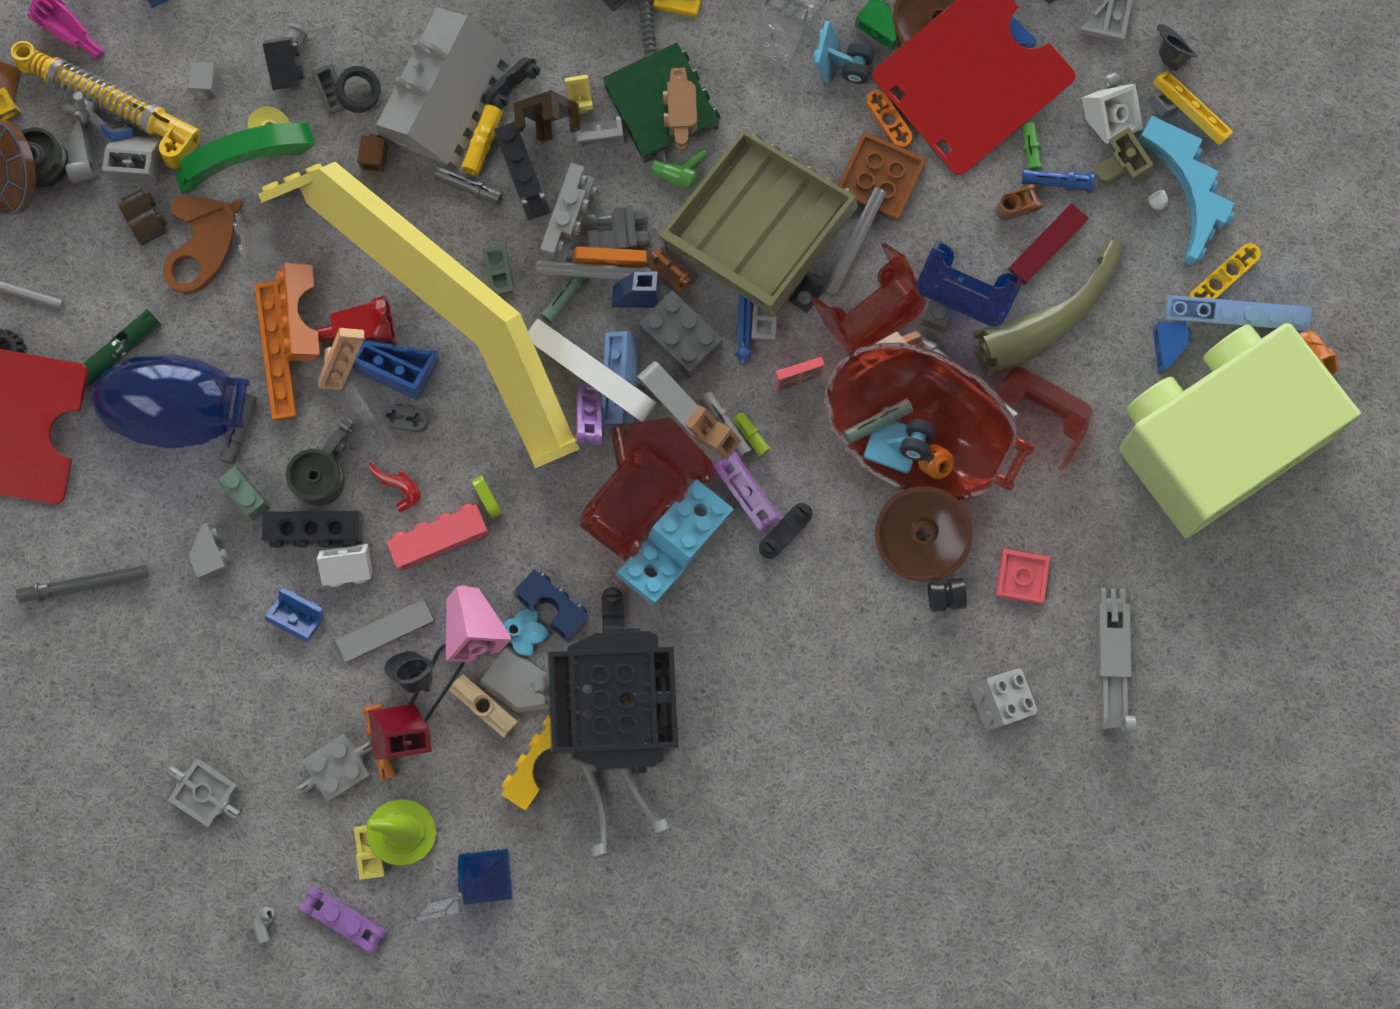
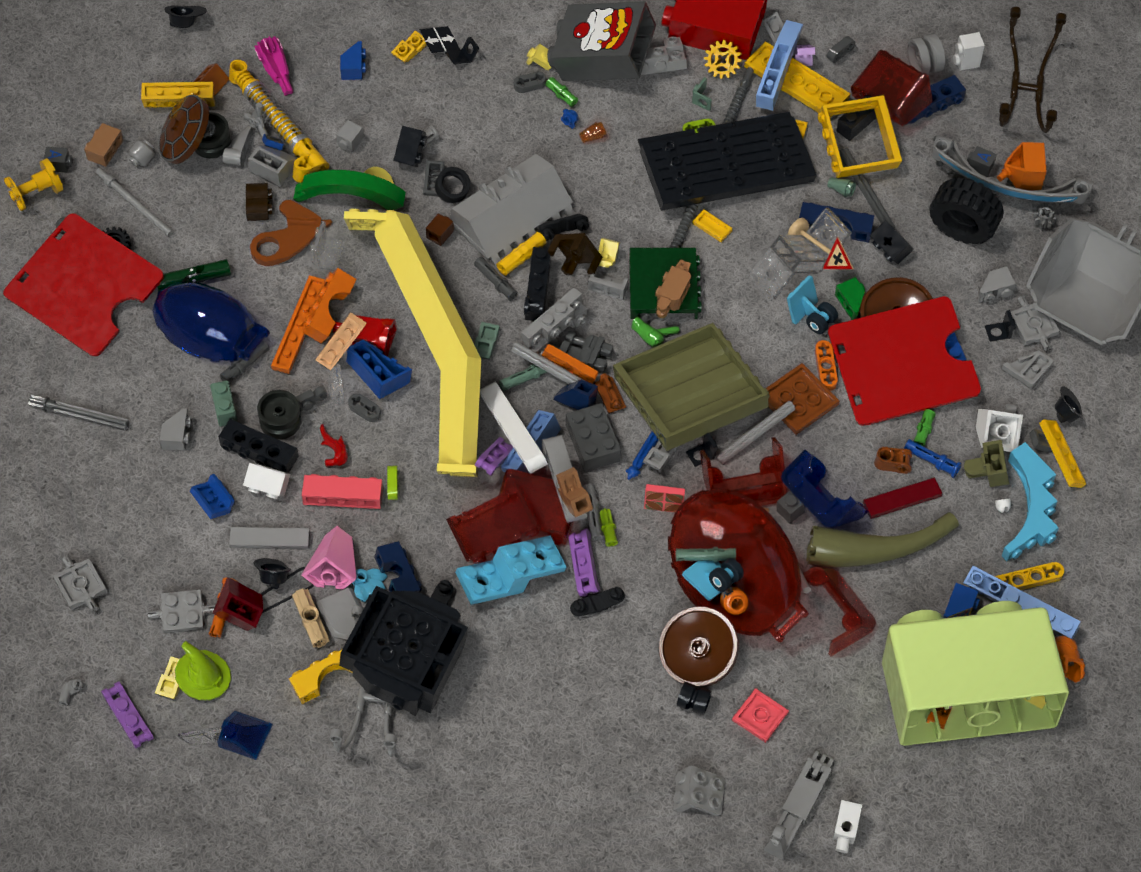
camera: 25 degrees right, 20 degrees down
(1174, 654) = (847, 818): none -> white torso

